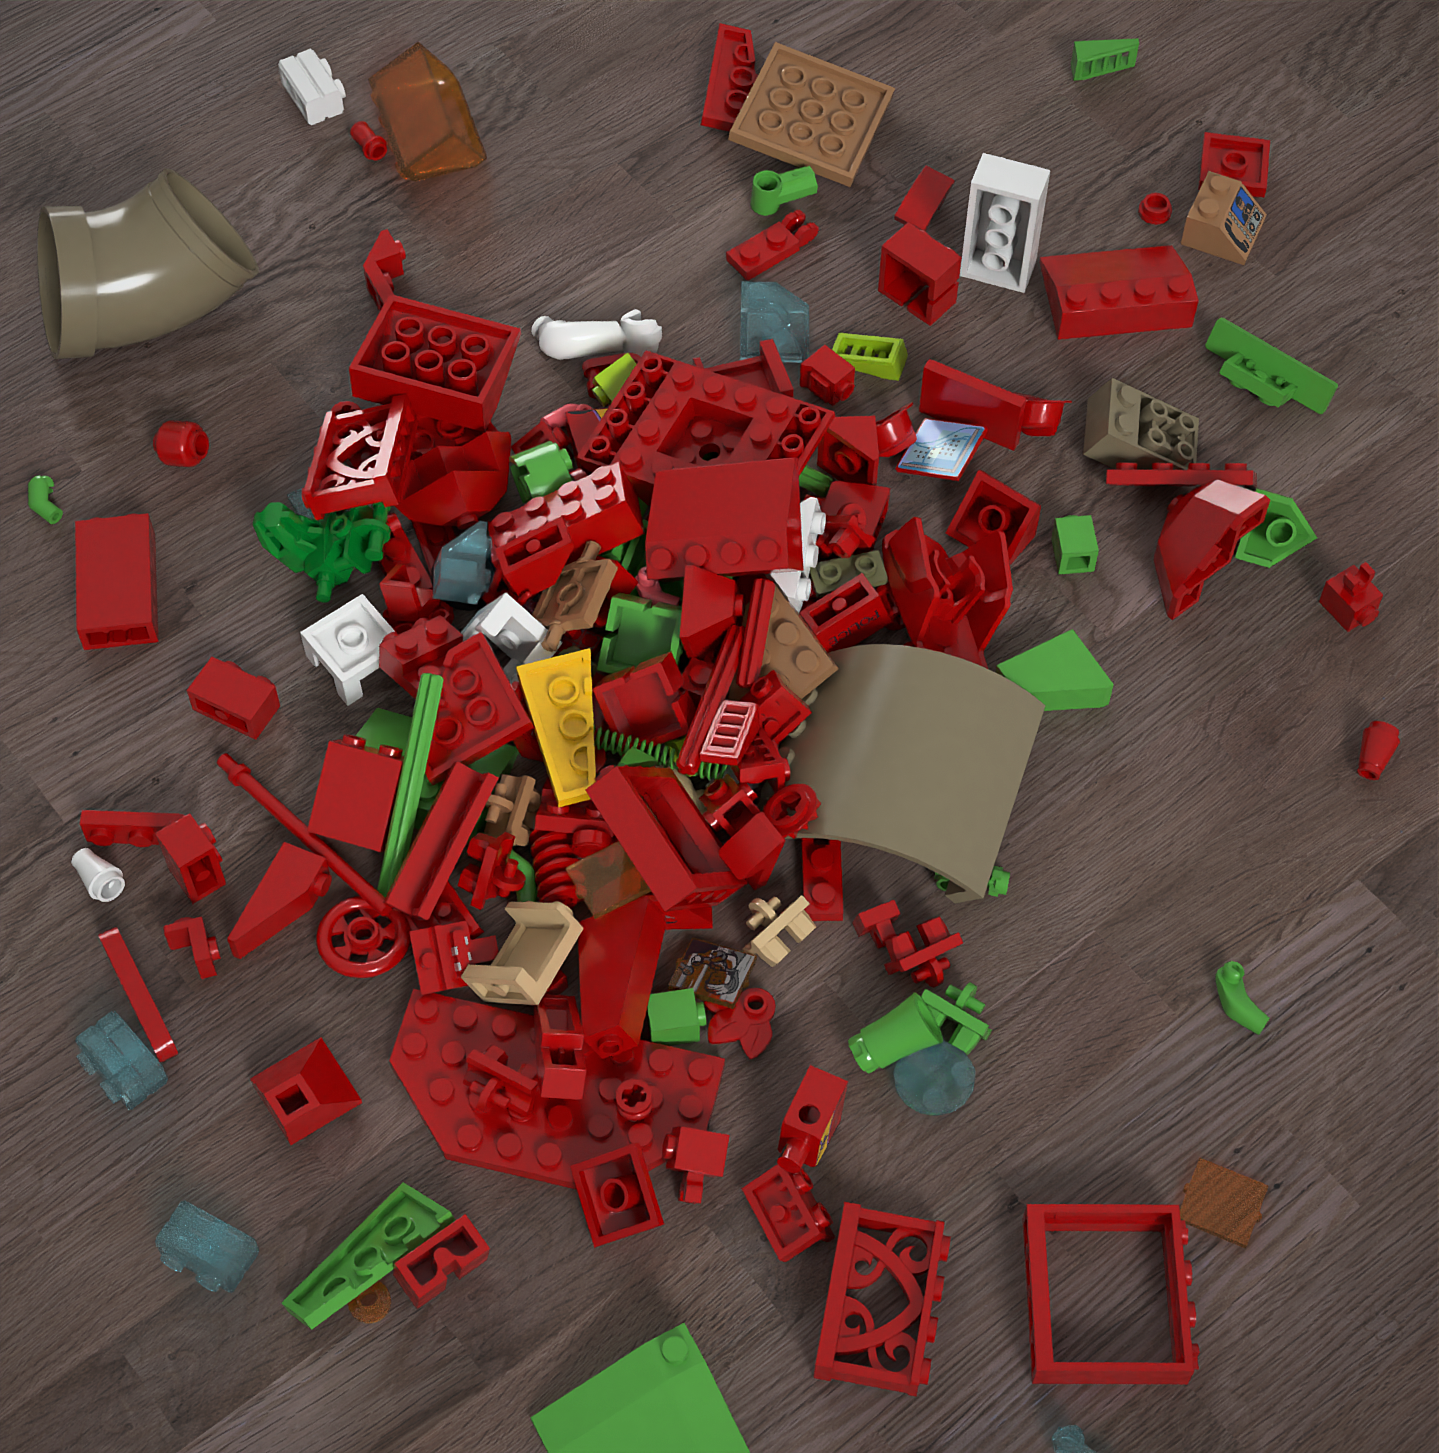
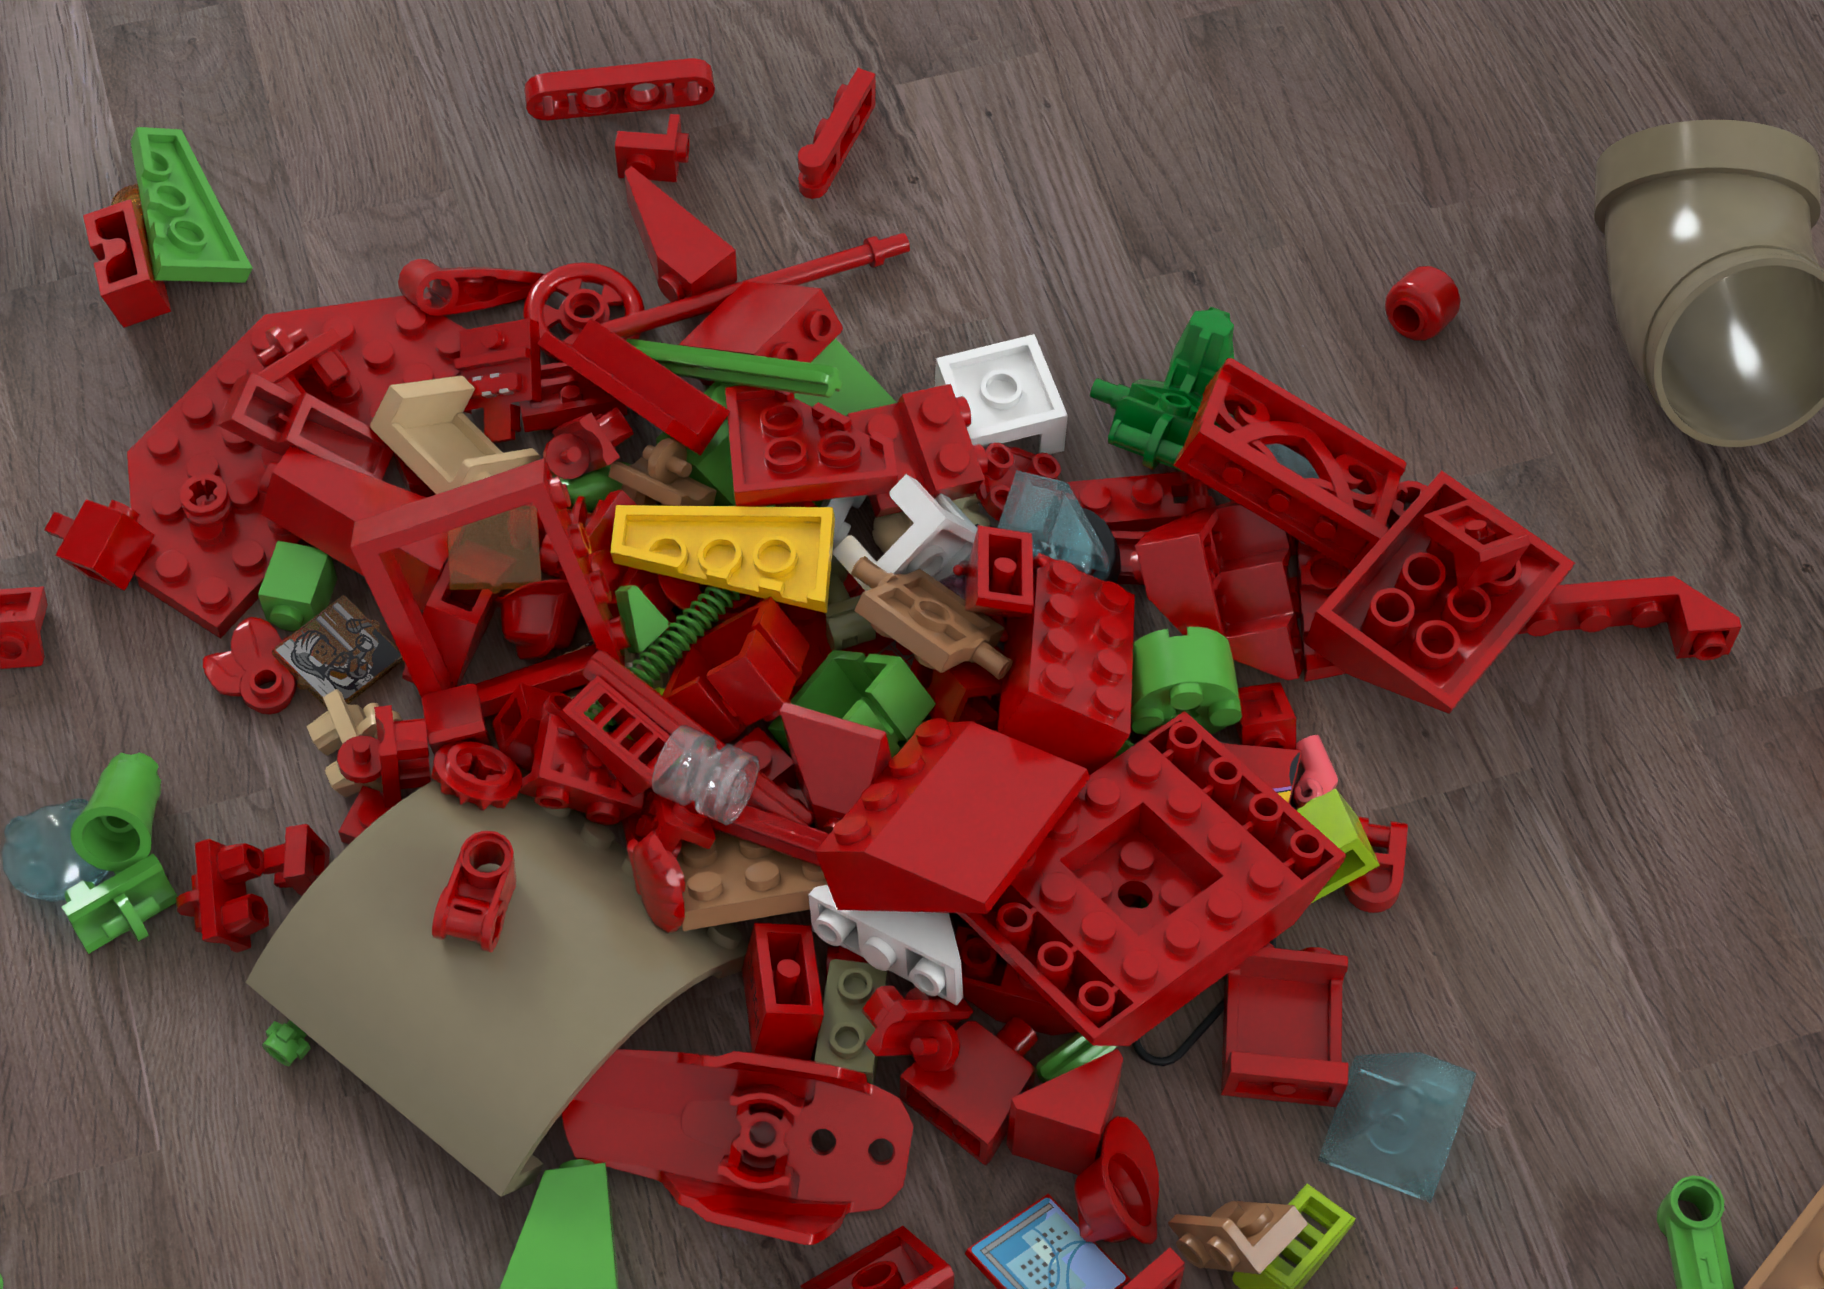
camera: 110 degrees right, 0 degrees up
(38, 499) = (1385, 147): bright green arm -> none
(99, 876) = (793, 88): white cone -> none
(116, 581) = (1221, 190): red brick -> none
(120, 1060) = (538, 48): clear light blue brick -> none
(192, 857) = (758, 156): red brick -> none
(206, 1247) = (280, 80): clear light blue brick -> none
(234, 697) = (985, 266): red brick -> none
(306, 1091) = (412, 201): red slope -> none
(369, 1024) = (462, 287): none -> red piece
(404, 599) = (1050, 454): red panel -> none
(410, 319) = (1481, 541): none -> red slope
(590, 338) = (1449, 814): white piece -> none
(616, 1194) = (99, 456): red slope -> none
(744, 668) = (697, 771): none -> clear wheel
(772, 245) = (1578, 1186): red hinge -> none
(796, 871) = (396, 755): none -> red hips
(809, 1129) = (61, 665): red torso -> none
(821, 679) = (658, 882): none -> red animal
(827, 375) = (1260, 1158): red window -> none
(884, 361) = (1237, 1235): none -> medium nougat bracket
(890, 746) = (477, 901): none -> red piece

